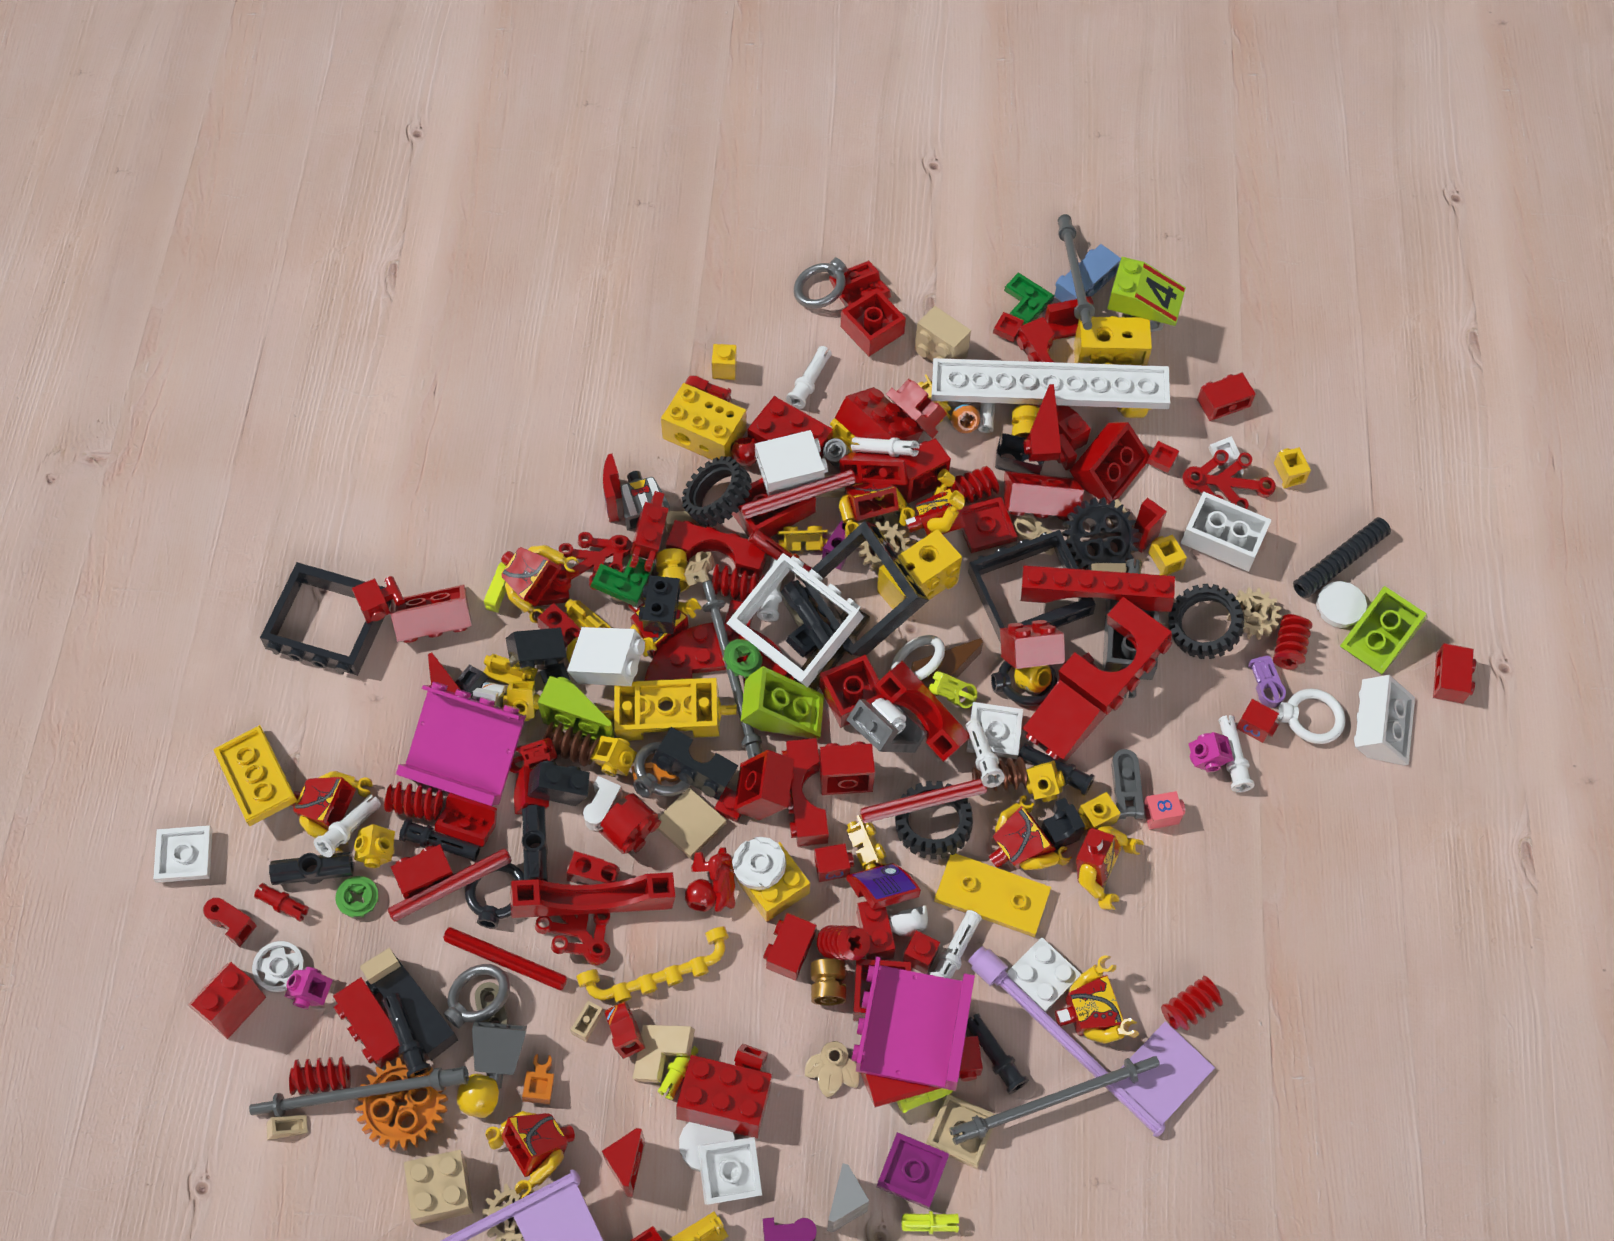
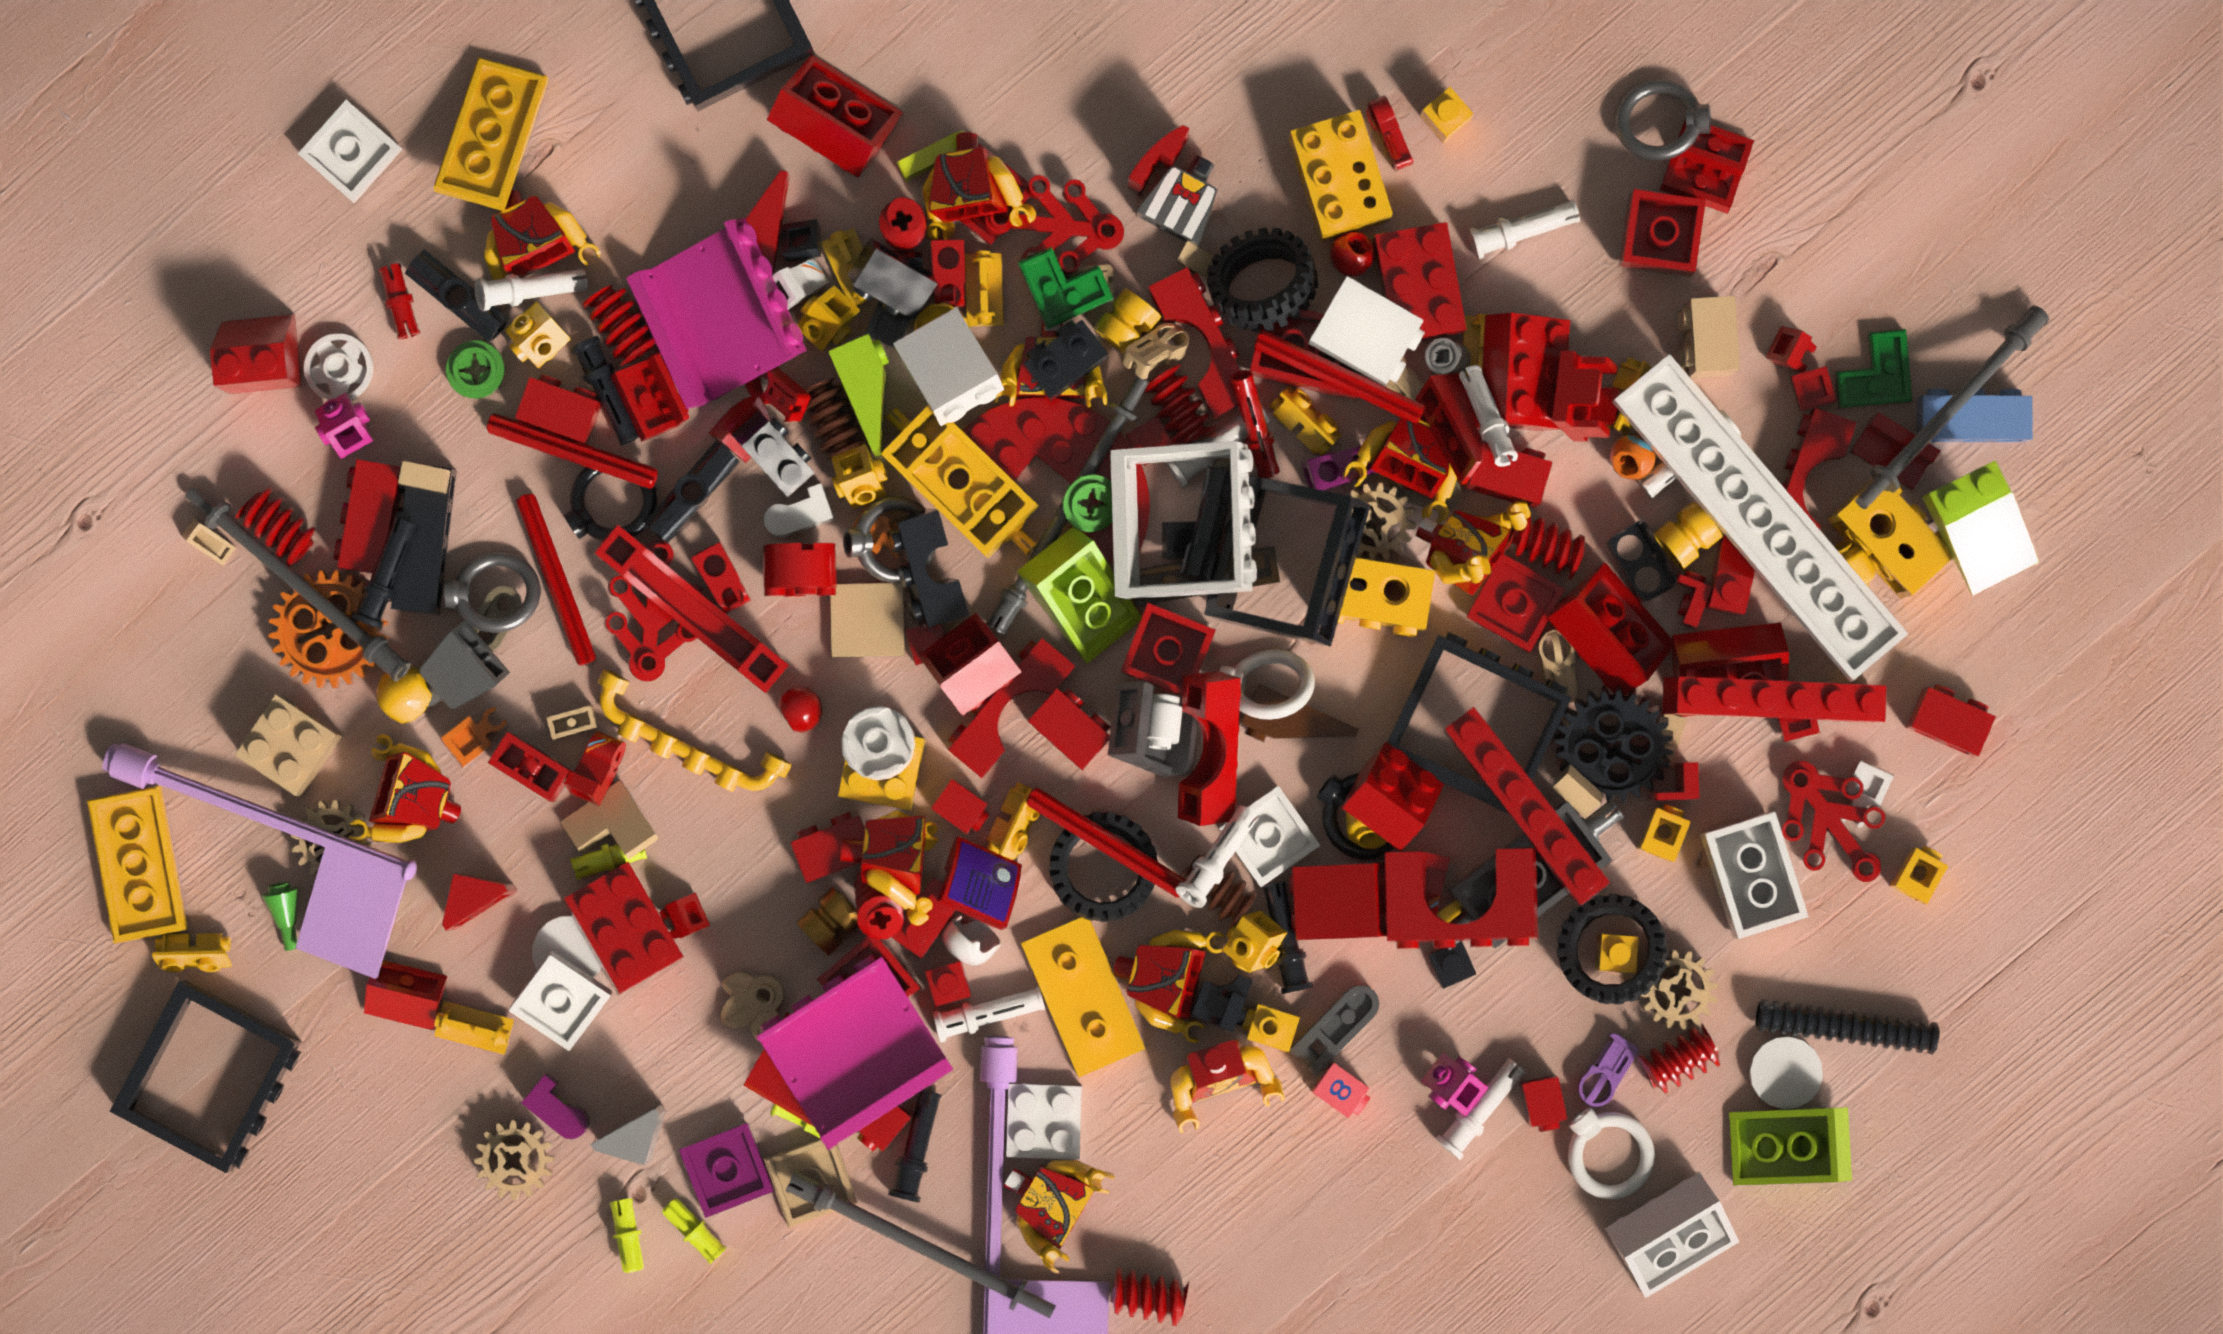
camera: 45 degrees right, 25 degrees up
(225, 915) = (335, 271): red leg -> none
(373, 599) = (779, 52): red brick -> none
(514, 616) = (905, 209): none -> red piece
(587, 1061) = (530, 766): none -> red brick
(649, 531) = (1140, 258): red hinge -> none
(721, 873) = (836, 709): red hair -> none
(828, 907) = (894, 859): none -> torso
(952, 688) = (1267, 751): neon yellow piece -> none
(980, 320) = (1790, 347): none -> red tile
(1044, 436) = (1678, 572): red slope -> none
(1125, 462) = (1774, 699): none -> red arch
(1144, 705) = (1452, 965): none -> black plate
(1209, 623) = (1616, 953): none -> yellow brick
(1454, 673) = (1805, 1263): red brick -> none

